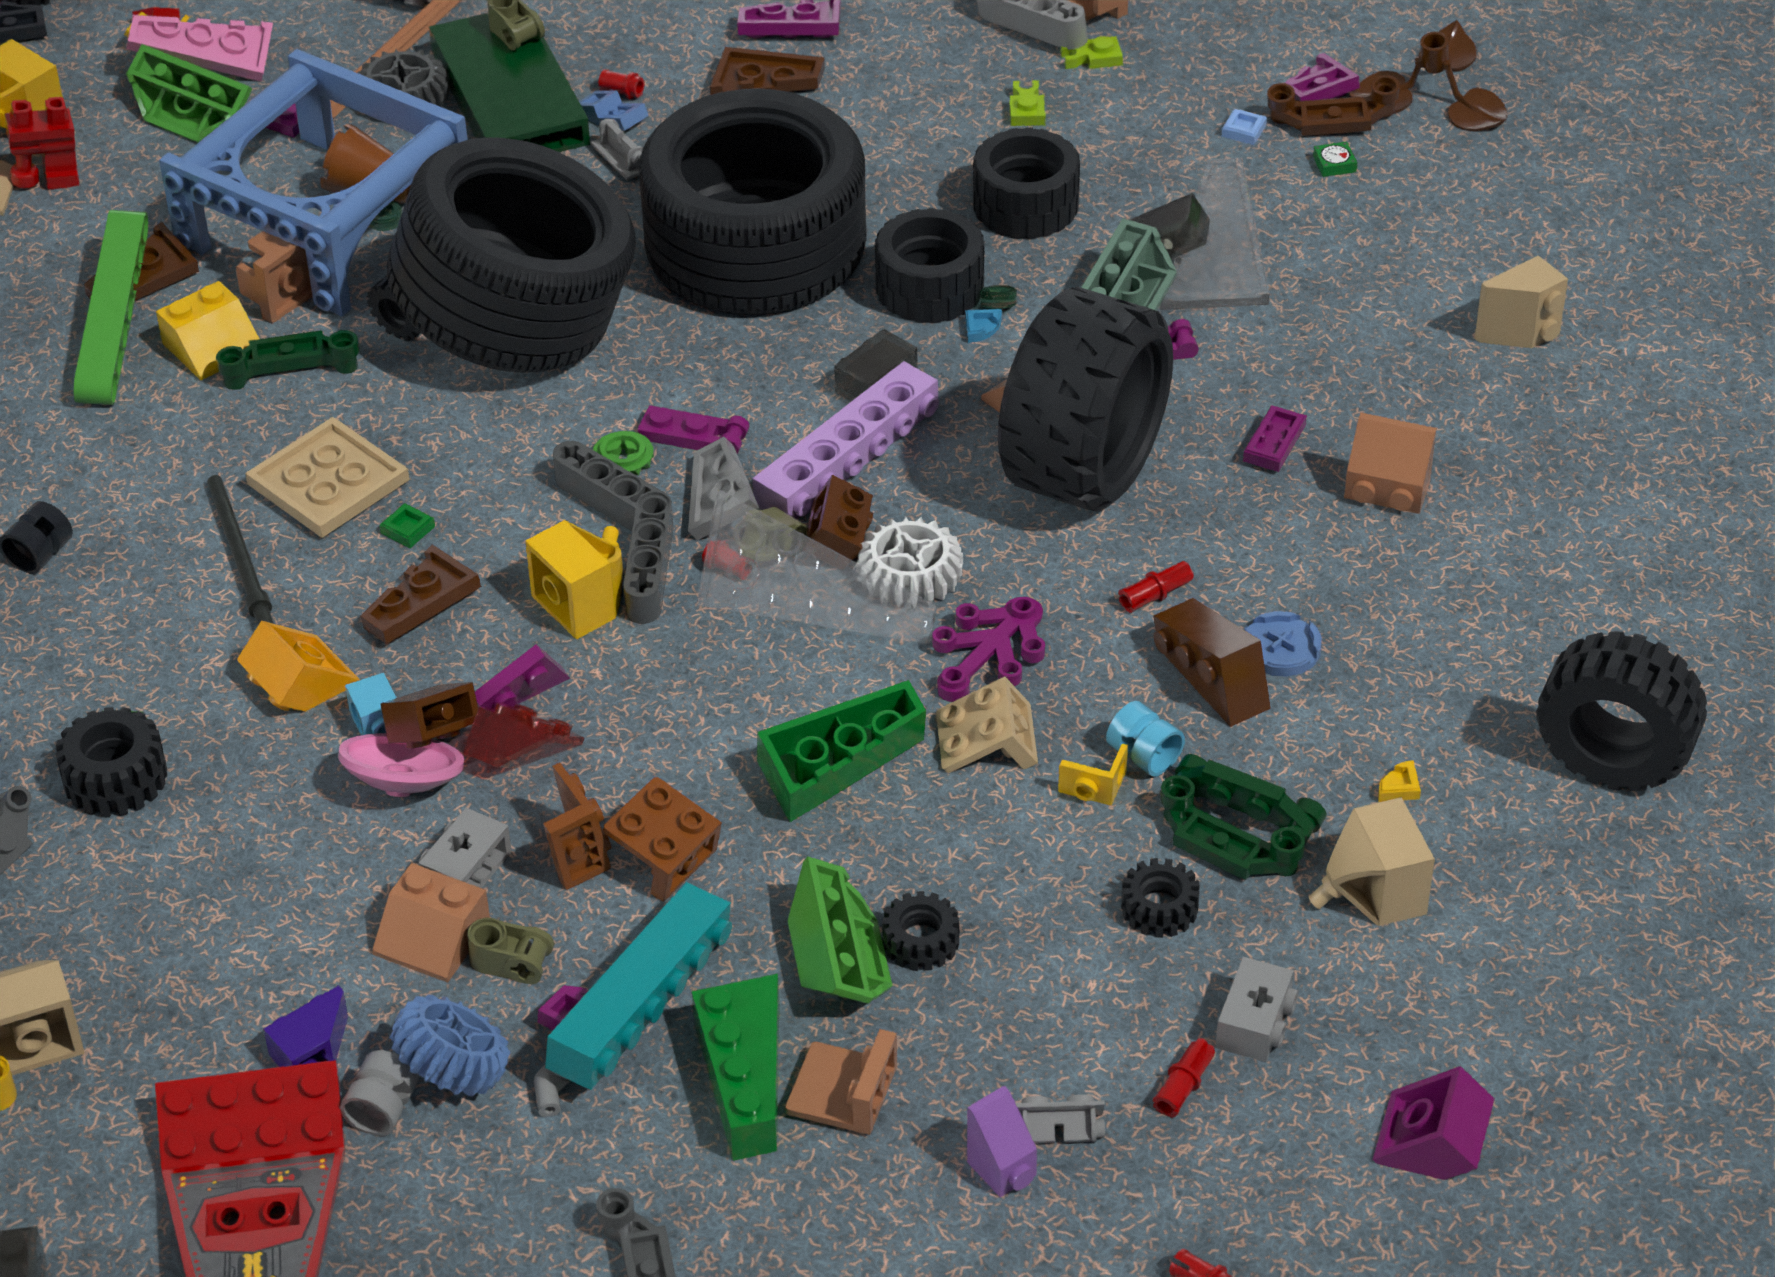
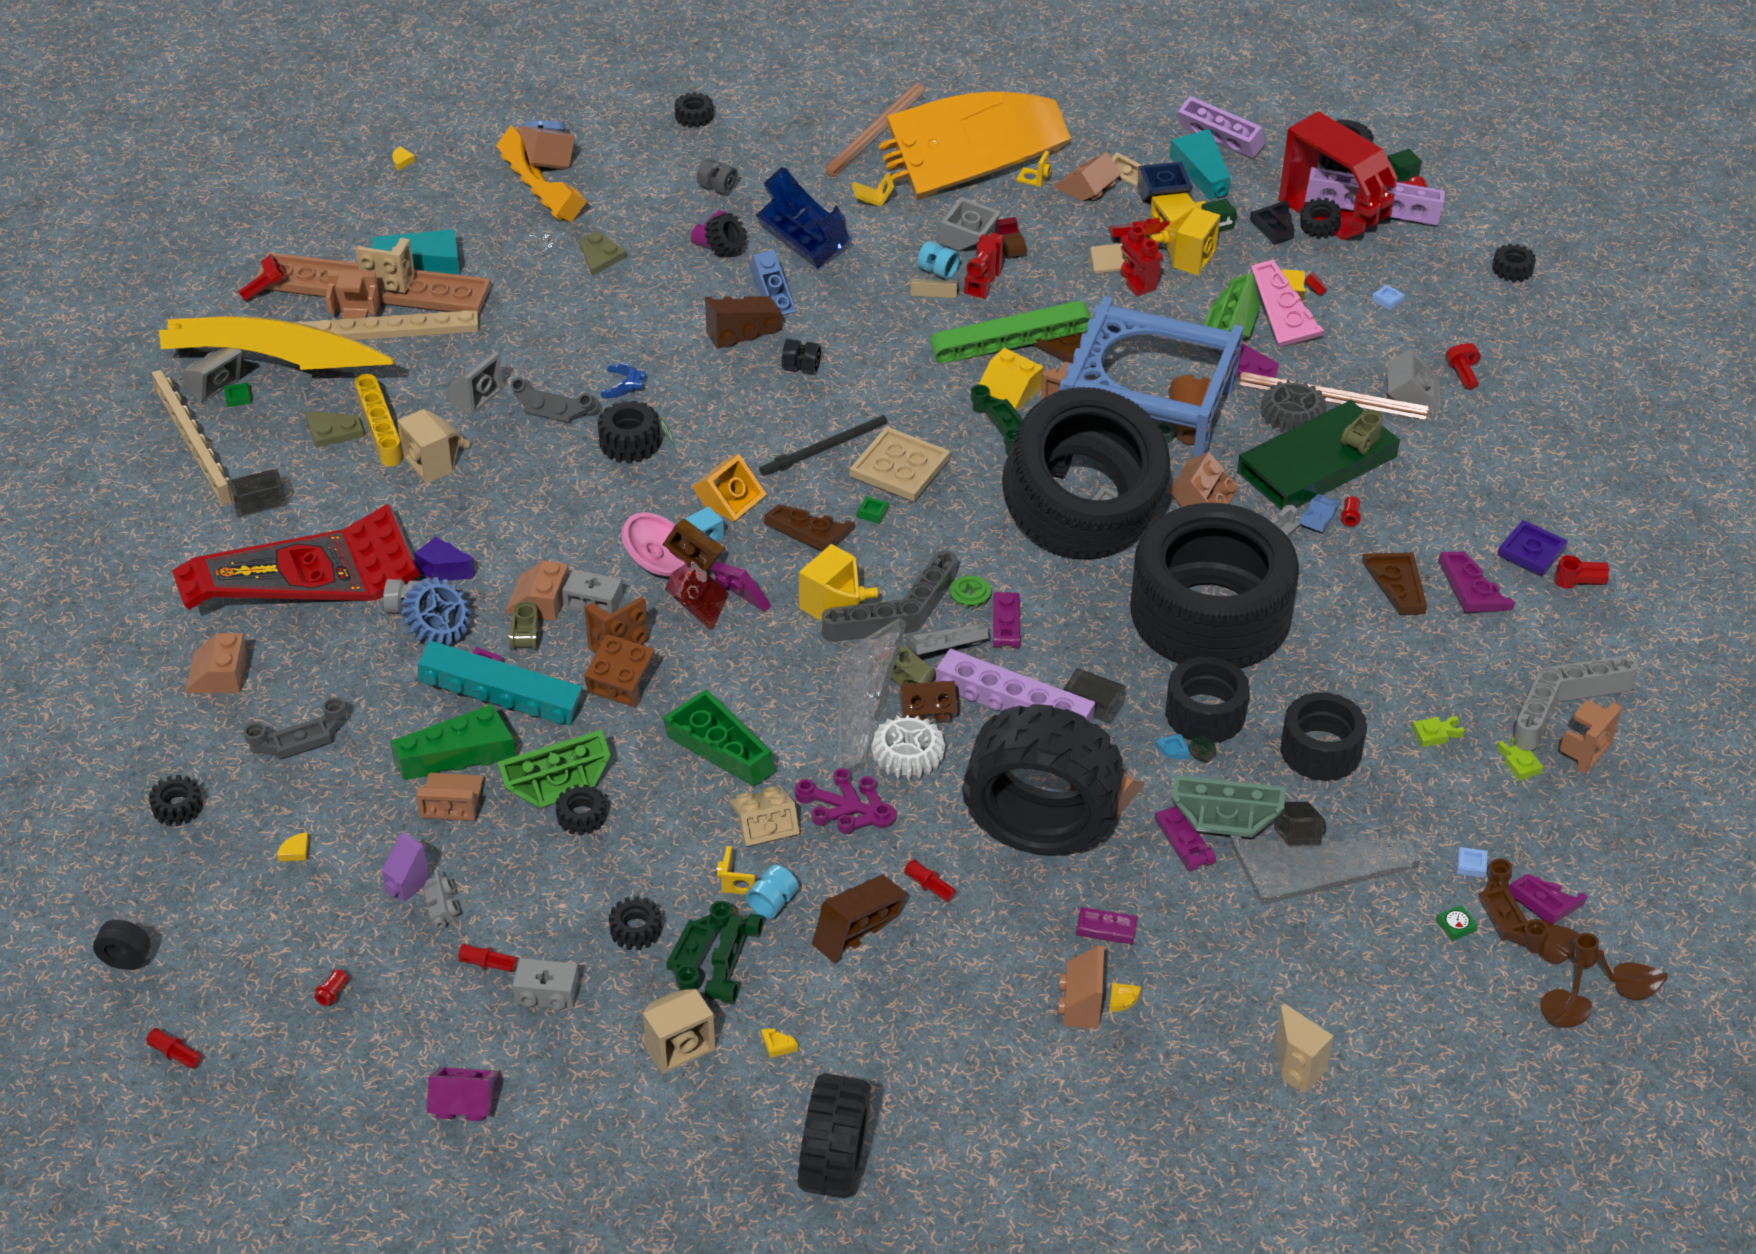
camera: 75 degrees right, 0 degrees up
(1286, 642) = (897, 959): medium blue tile -> none

